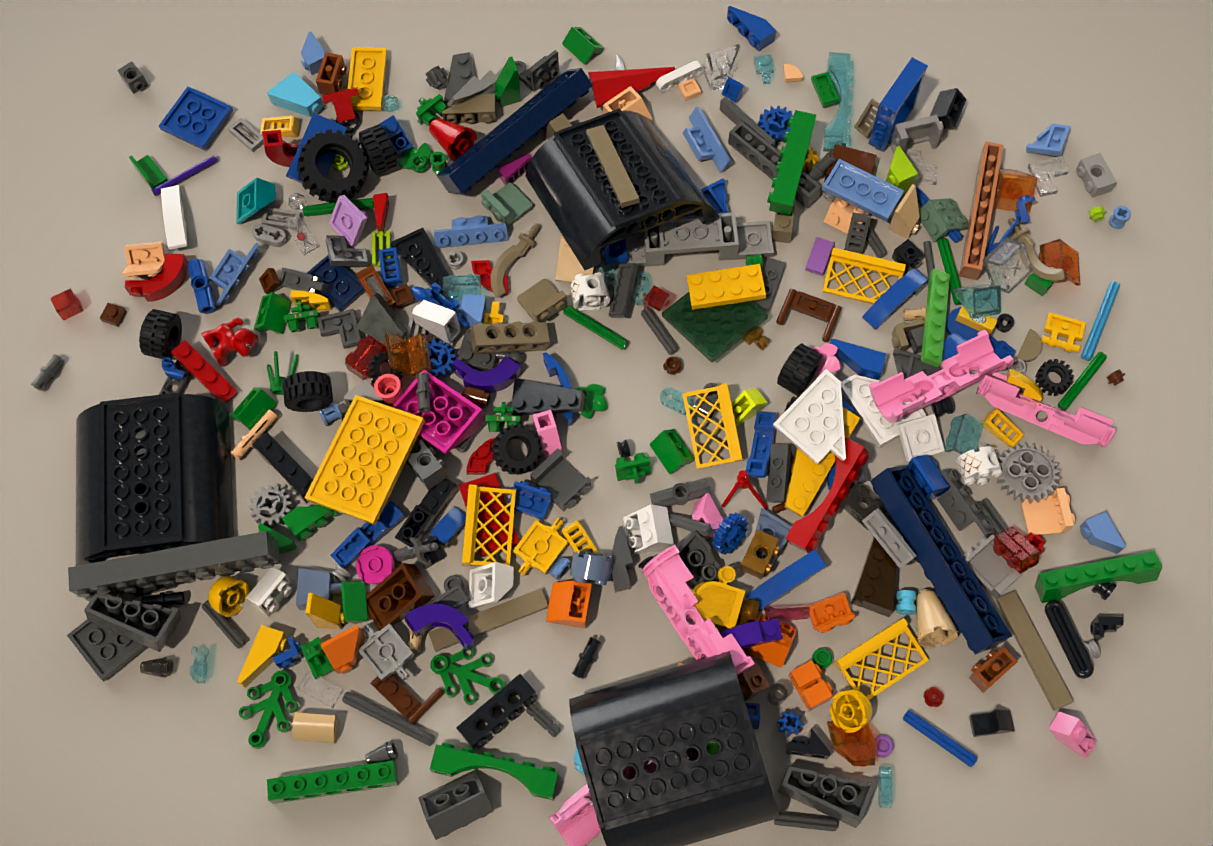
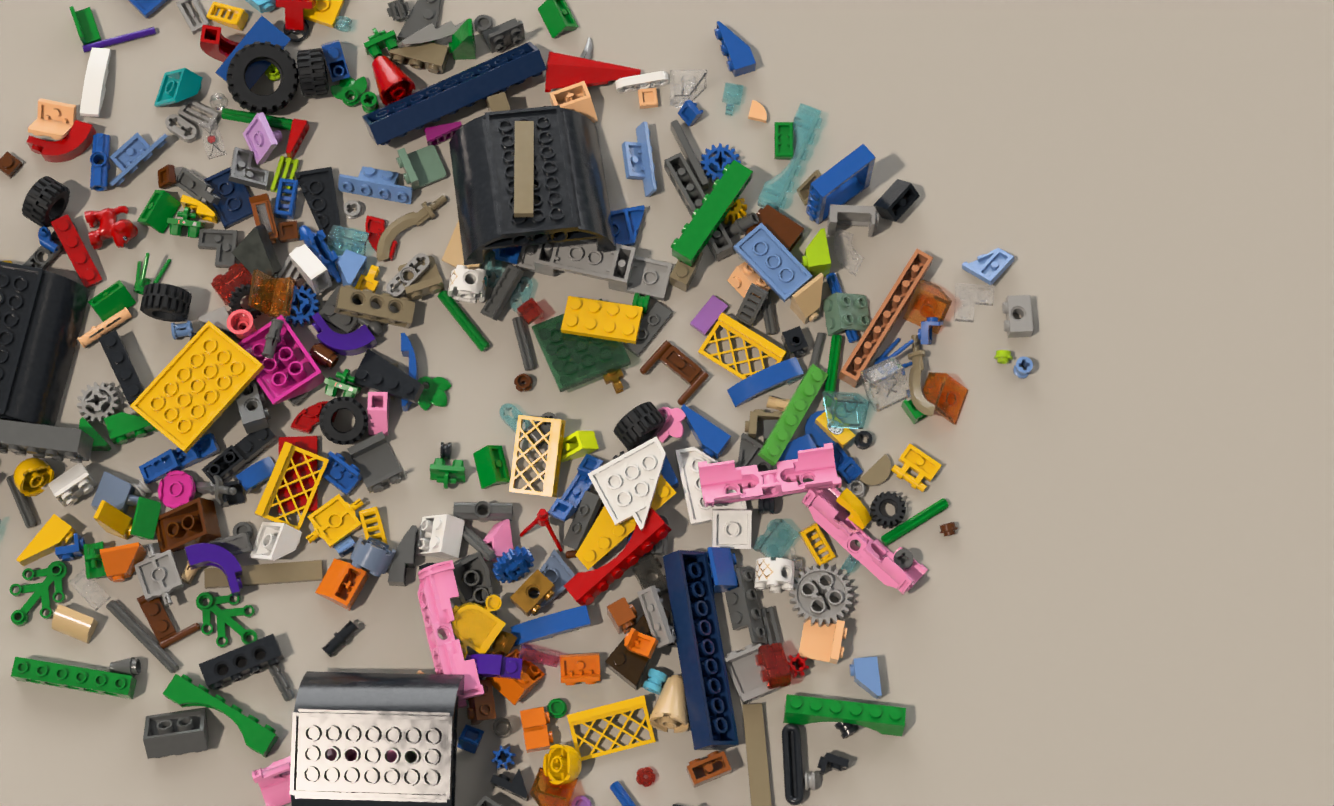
camera: 15 degrees right, 5 degrees up
(529, 293) = (408, 268): none -> light grey beam
(852, 549) = (622, 615): none -> dark orange brick
(884, 568) = (640, 643): none -> orange bracket
(1040, 436) = (849, 564): none -> clear light blue bush
(1094, 410) = (903, 562): none -> dark grey wheel
(1100, 321) = (959, 467): dark azure axle -> none

